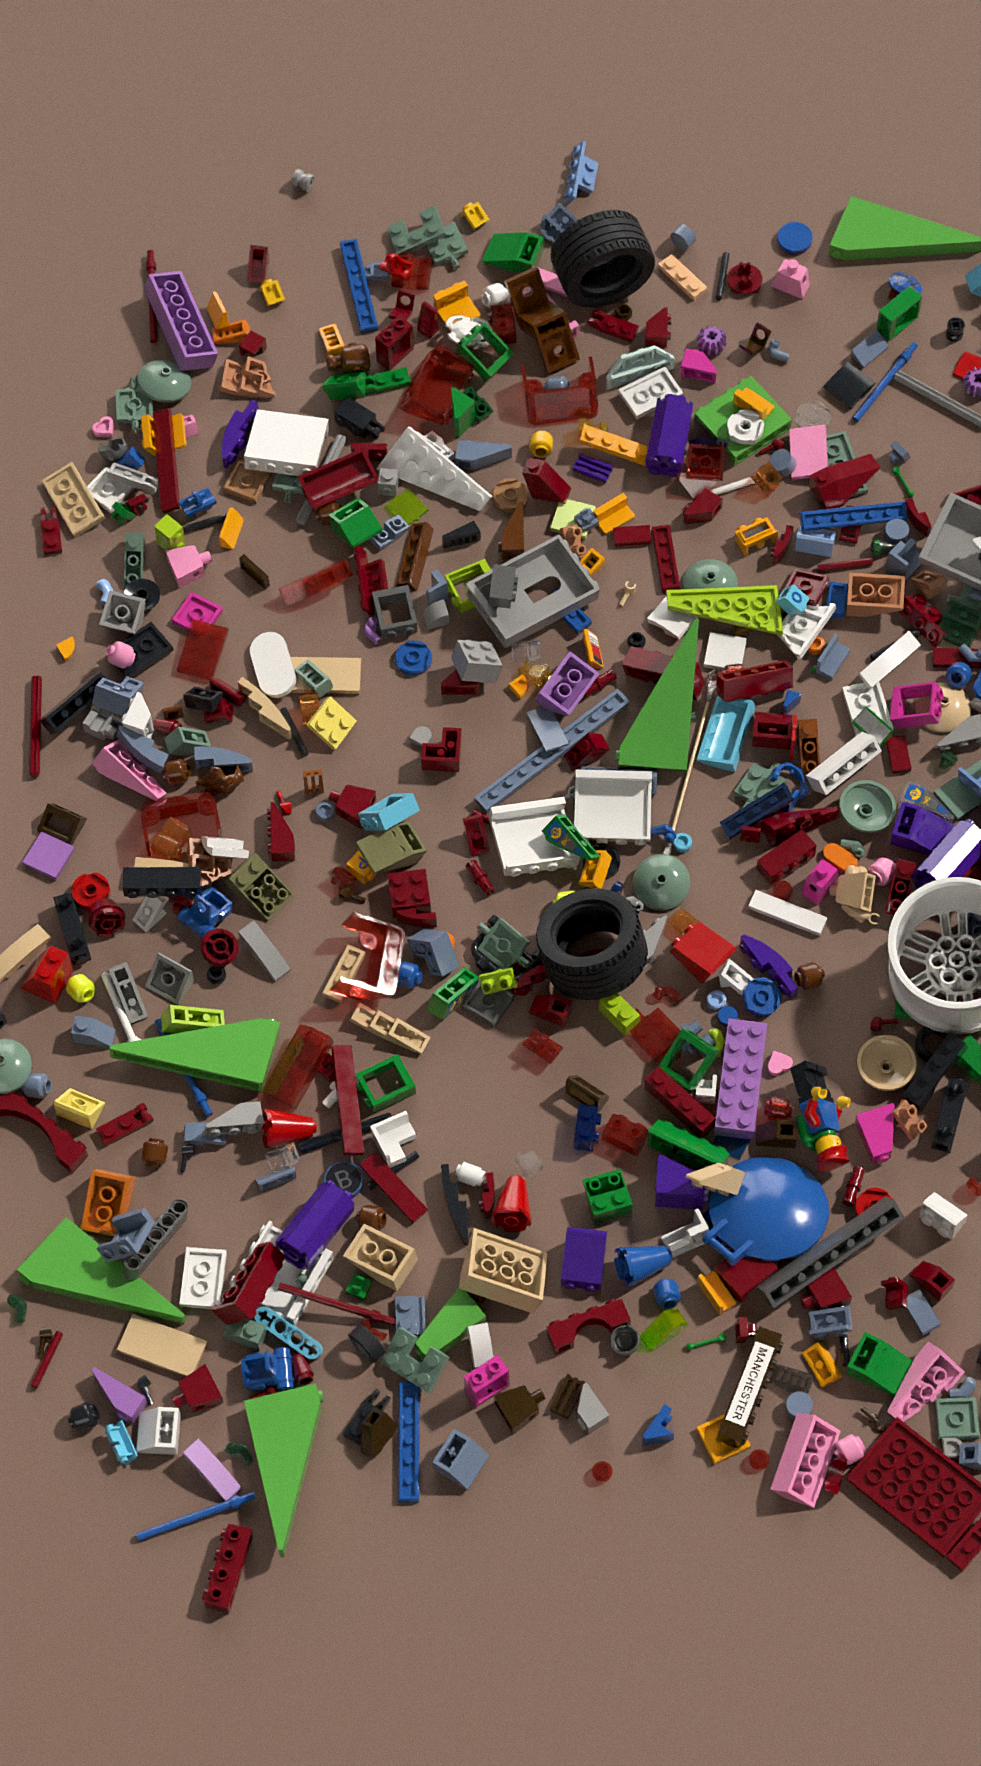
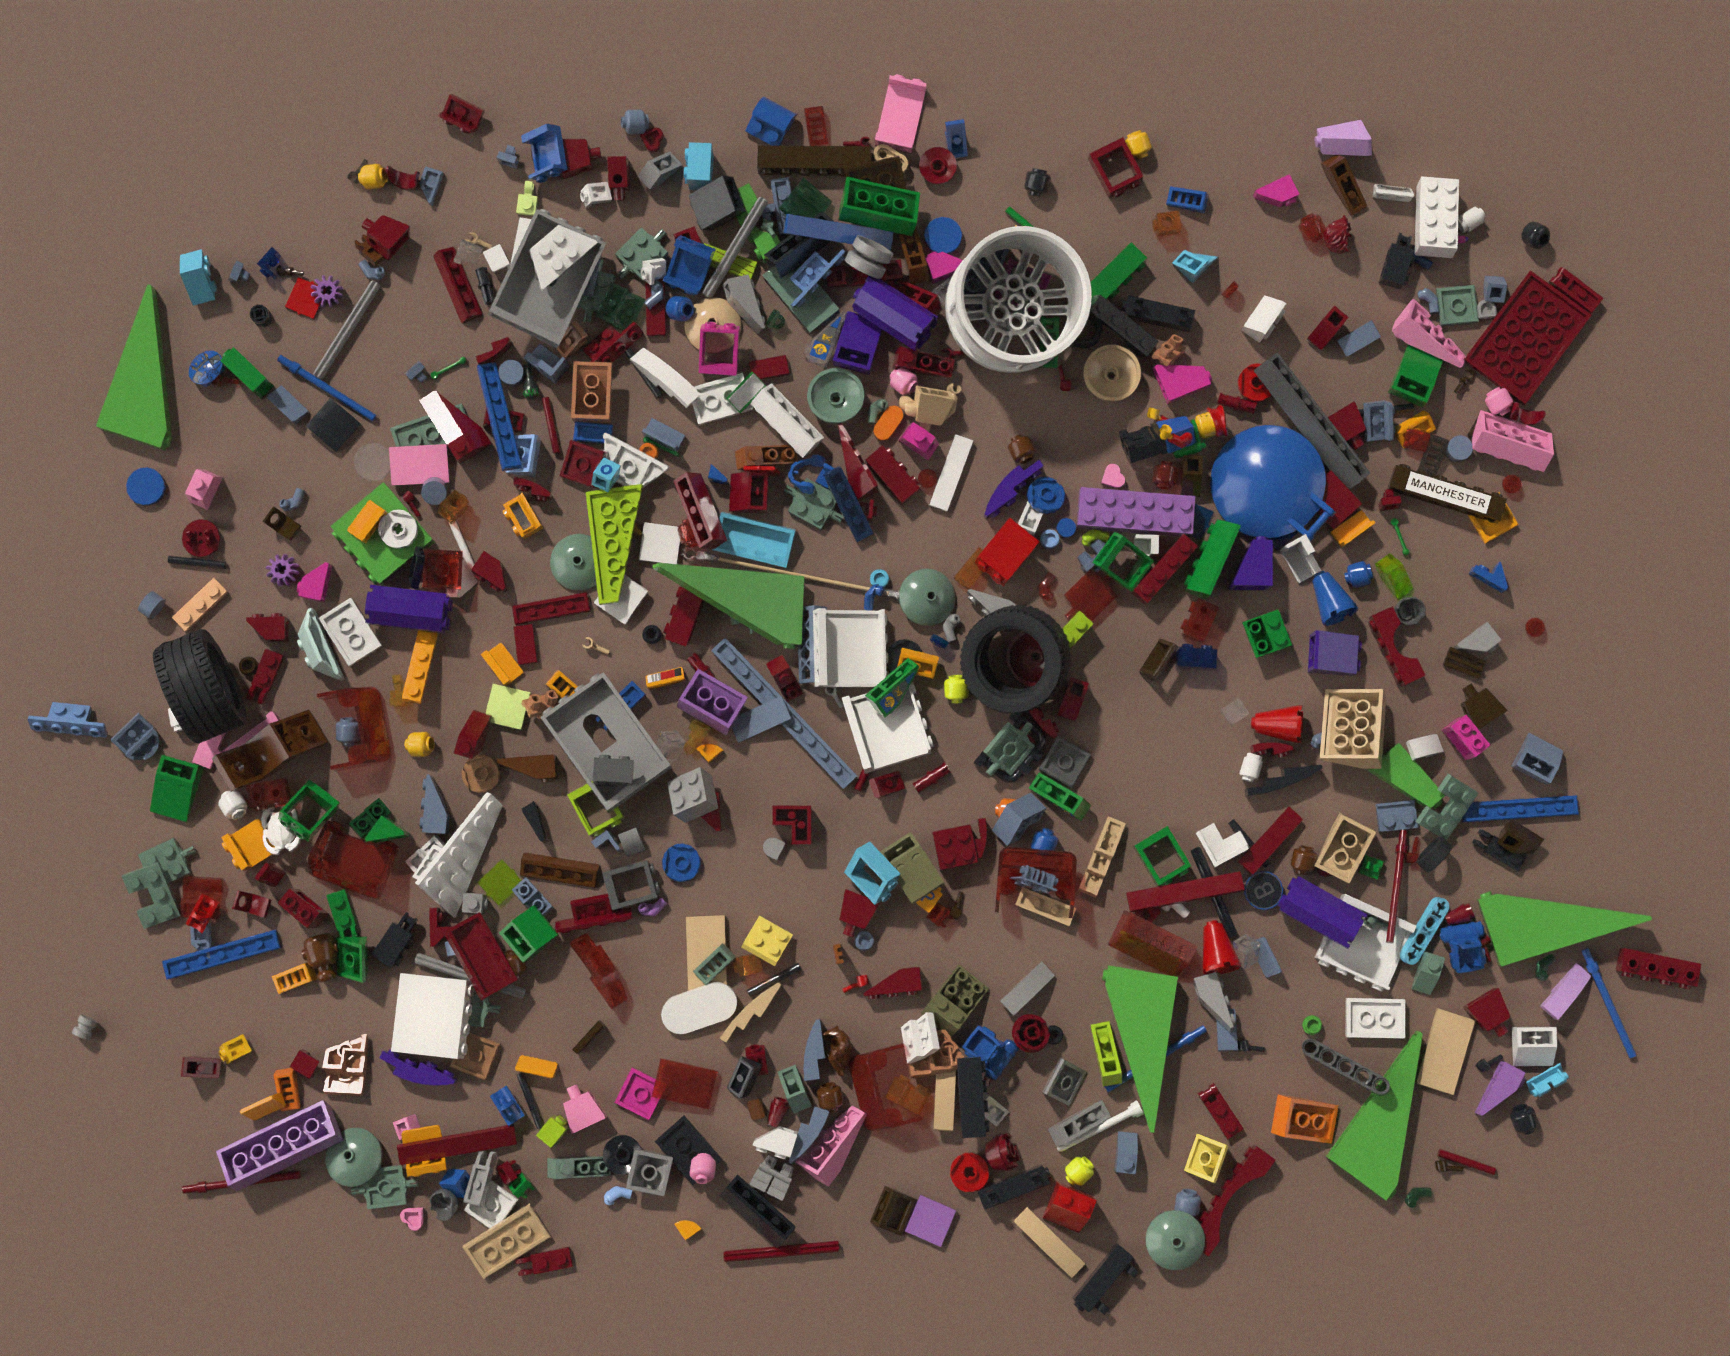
camera: 95 degrees left, 20 degrees up
(116, 696) = (753, 1166): sand blue panel -> none
(132, 1231) = (1351, 1094): sand blue panel -> none
(154, 1152) = (1250, 1078): reddish brown head -> none
(202, 1217) = (1312, 1025): none -> bright green plate
(228, 691) = (730, 1052): dark red slope -> none
(250, 1285) = (1388, 969): dark red wedge -> none
(363, 966) = (1030, 877): none -> sand blue hinge
(474, 214) = (126, 833): yellow bracket -> none
(498, 981) = (1051, 750): lime hips -> none
(542, 1046) = (1114, 704): clear red hips -> none
(586, 520) = (512, 691): sand blue tile -> none
(593, 465) = (438, 704): dark purple tile -> none
(718, 1176) = (1257, 526): tan slope -> none
(810, 1361) = (1416, 439): none -> clear red slope
(895, 1293) = (1343, 362): dark red bracket -> none

